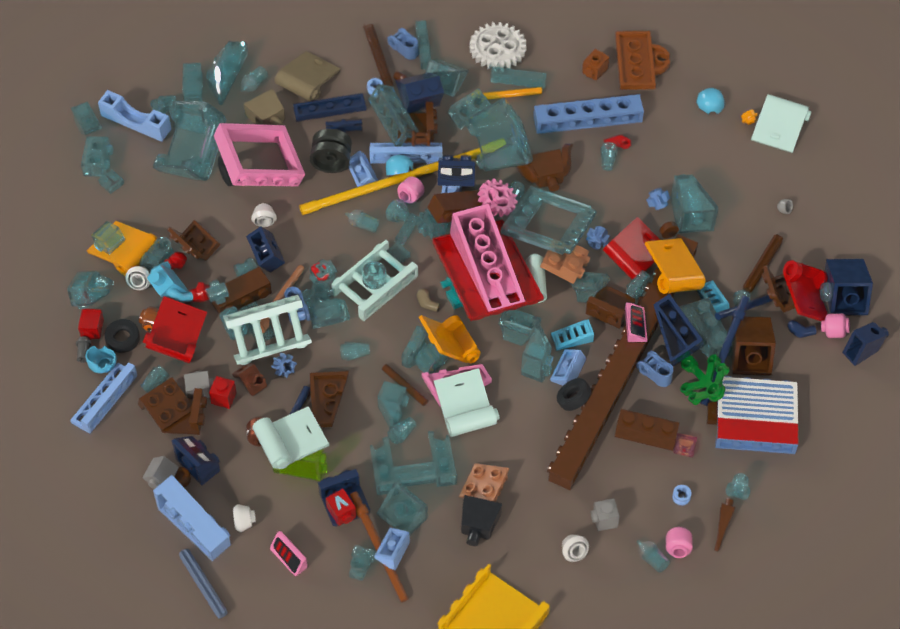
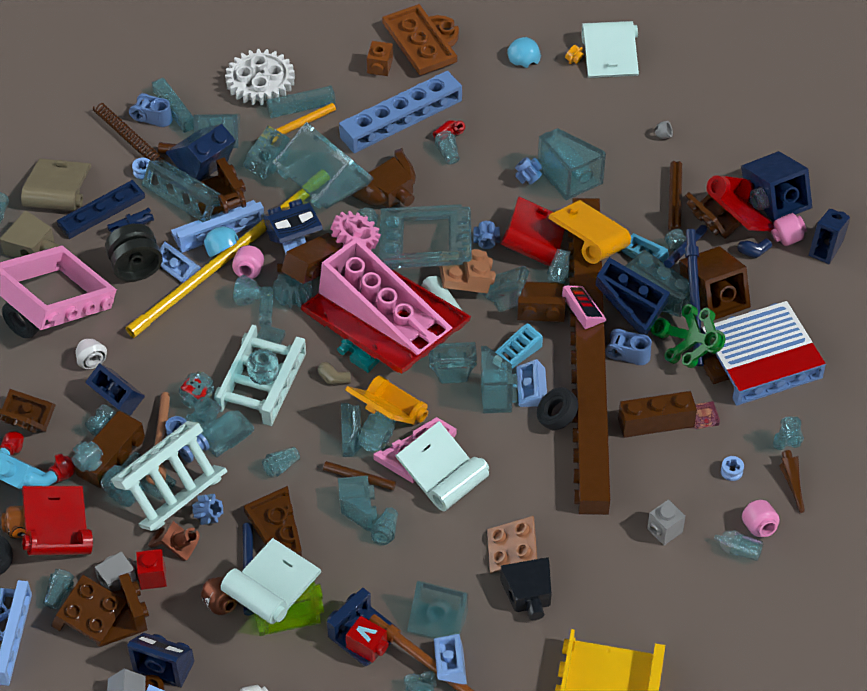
camera: 25 degrees left, 5 degrees down
(363, 220) = (210, 315): clear light blue piece -> none
(439, 471) = (453, 552): clear light blue wedge -> none
(575, 548) = (653, 572): white cone -> none
(669, 229) = (558, 198): reddish brown tile -> none

